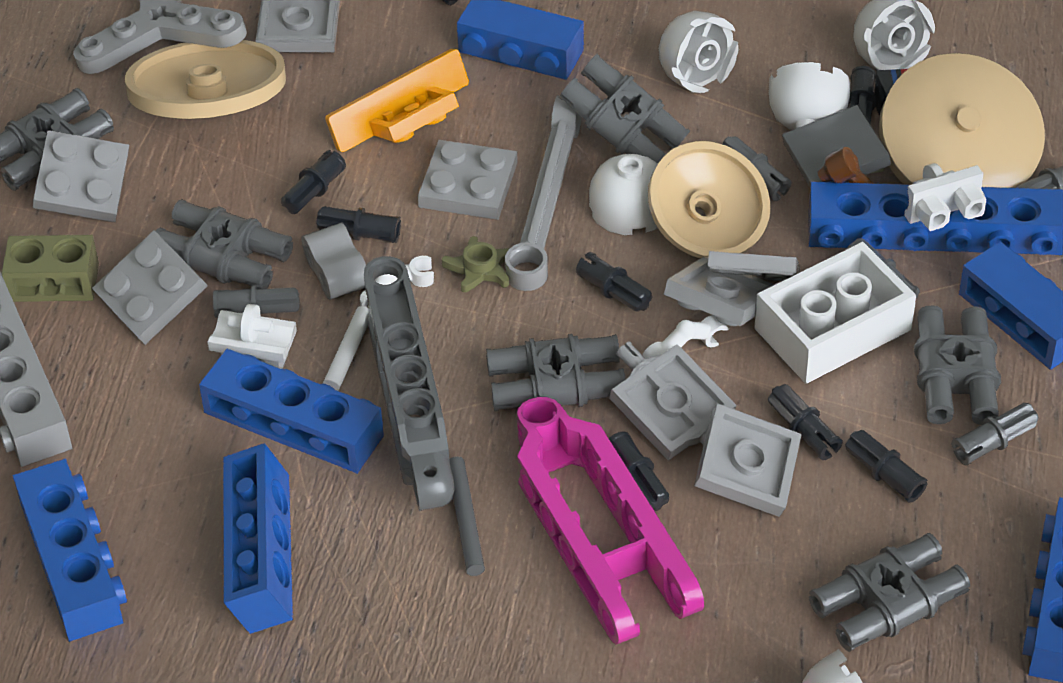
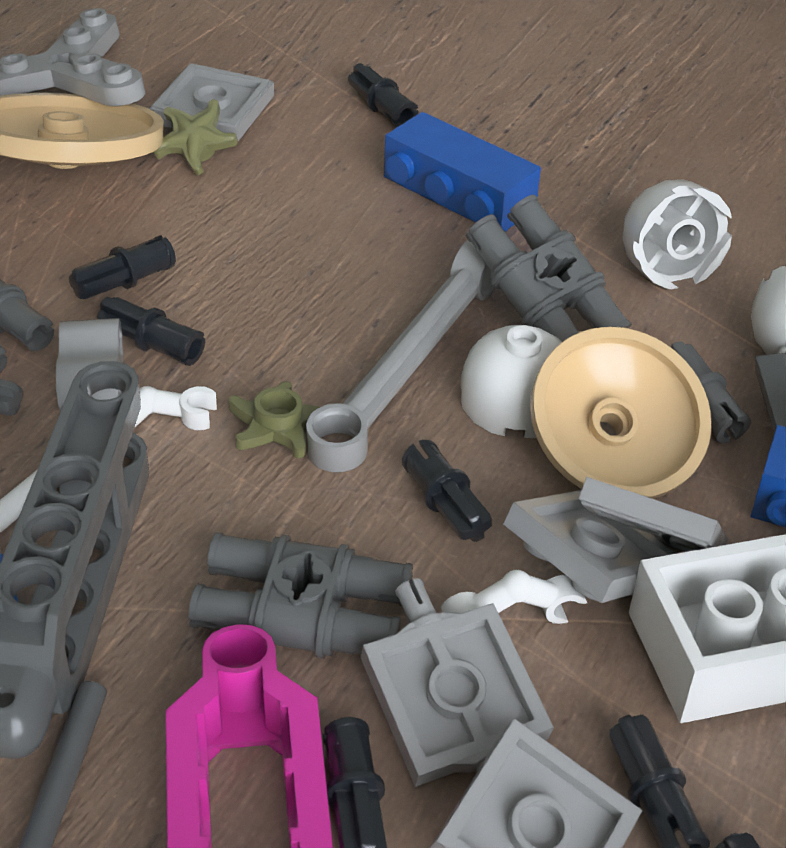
camera: 15 degrees right, 5 degrees down
(304, 56) = (195, 136): none -> olive animal
(401, 104) = (277, 207): light orange bracket -> none
(468, 179) = (318, 314): light grey plate -> none

